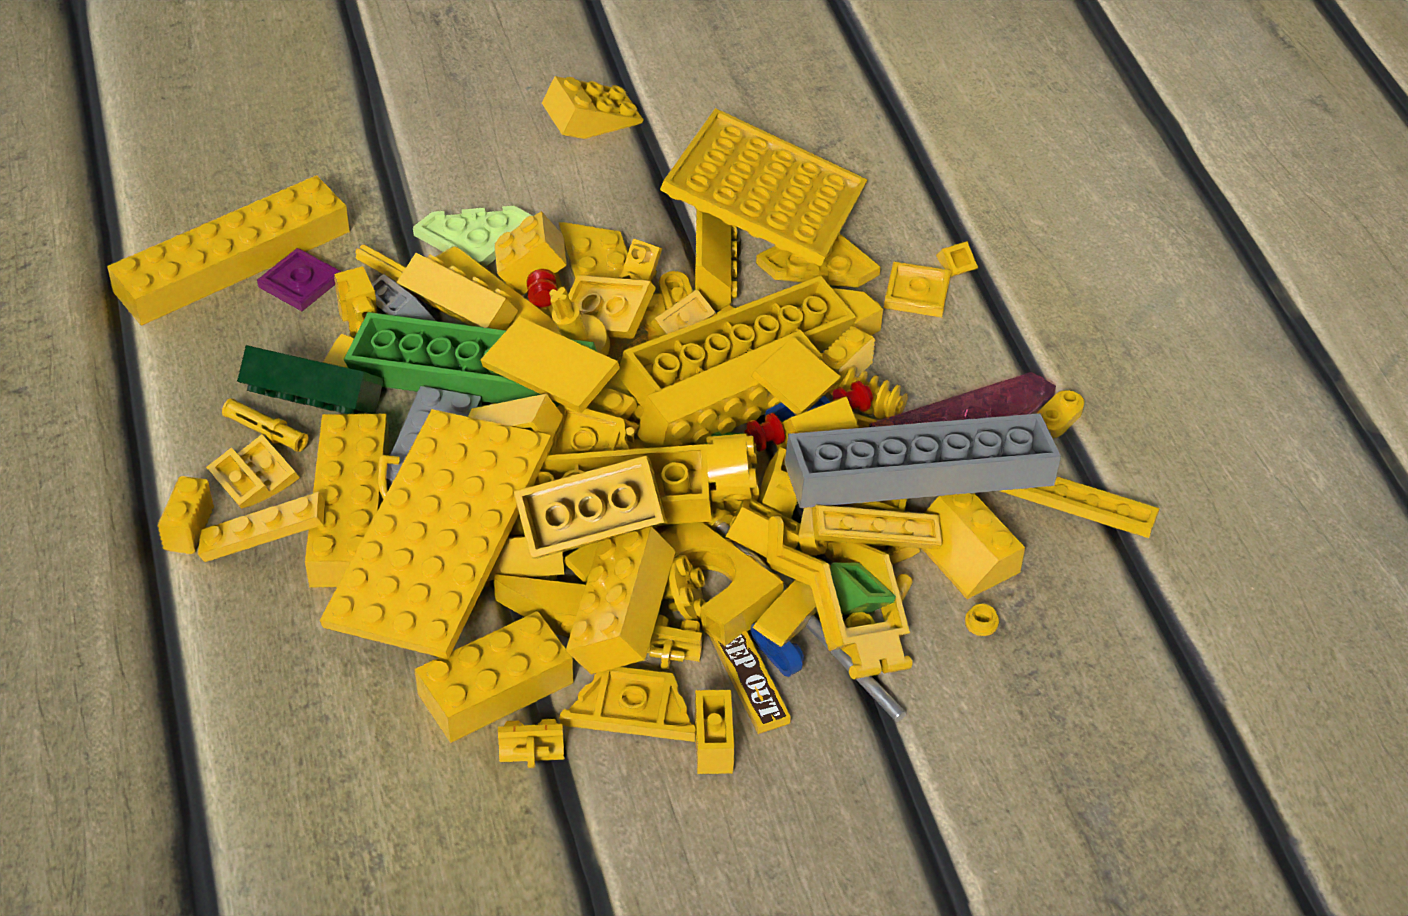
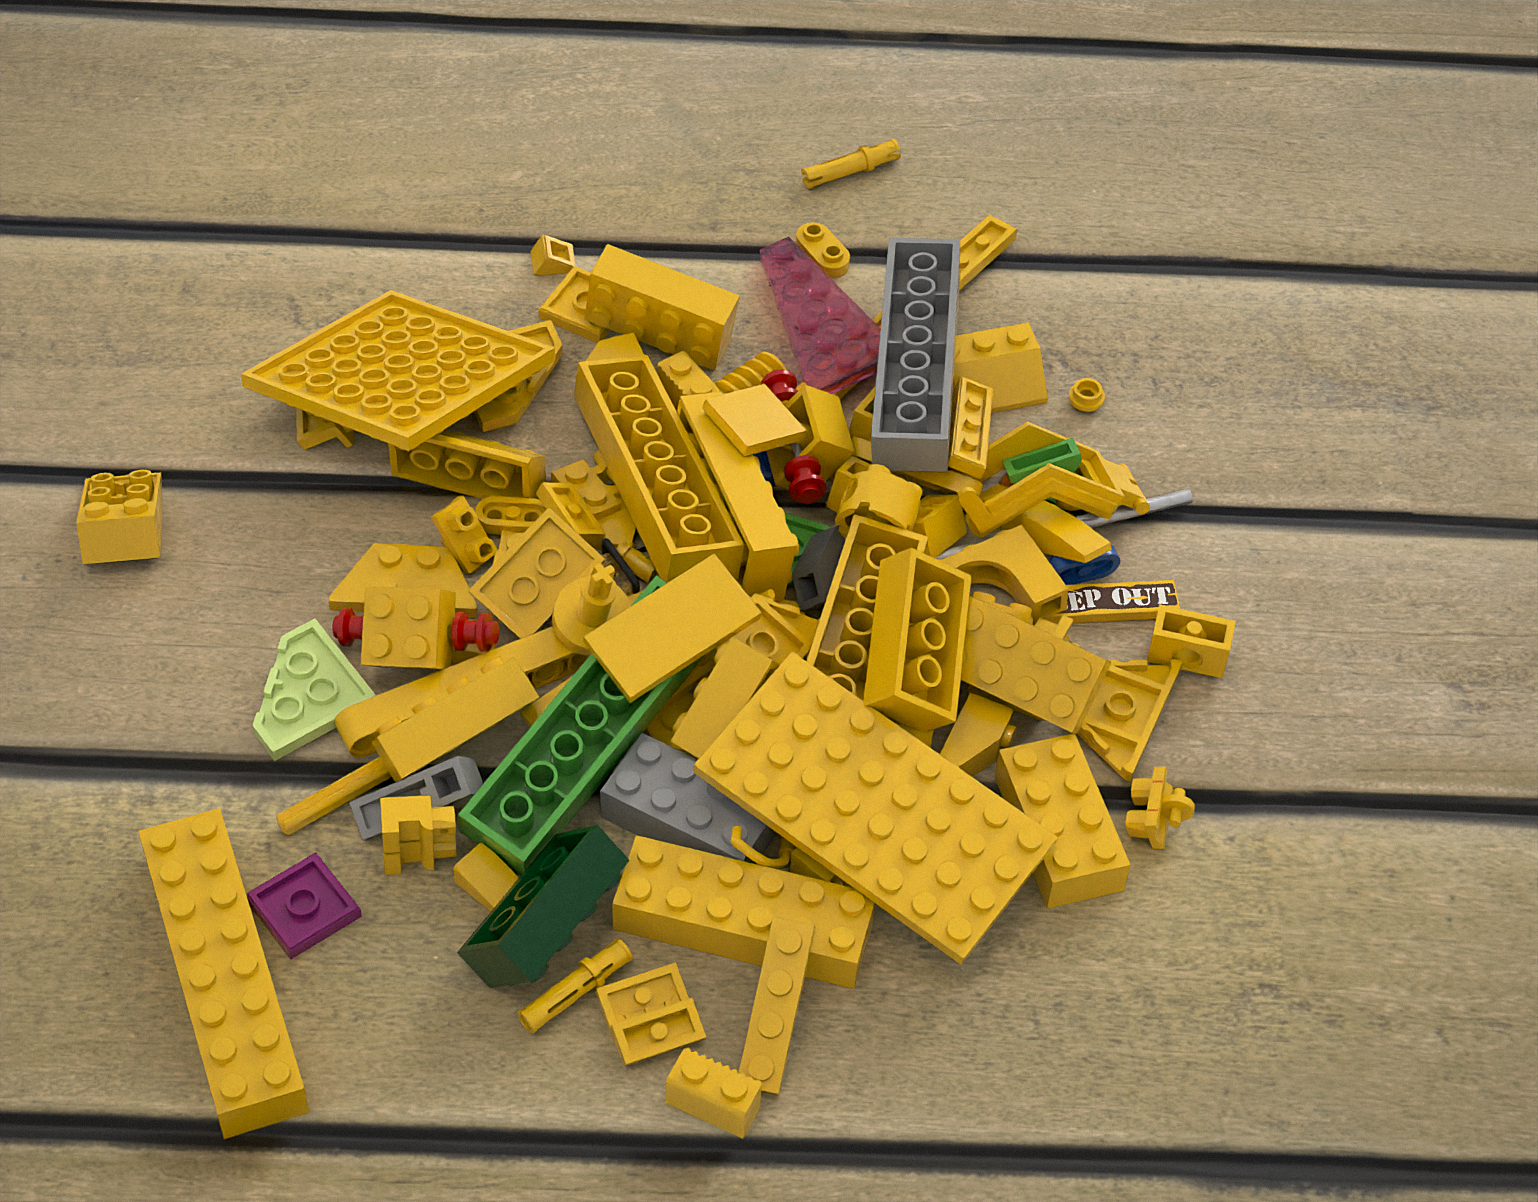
camera: 75 degrees left, 5 degrees up
(910, 314) = (661, 306): none -> yellow brick
(1179, 415) = (863, 159): none -> yellow pin

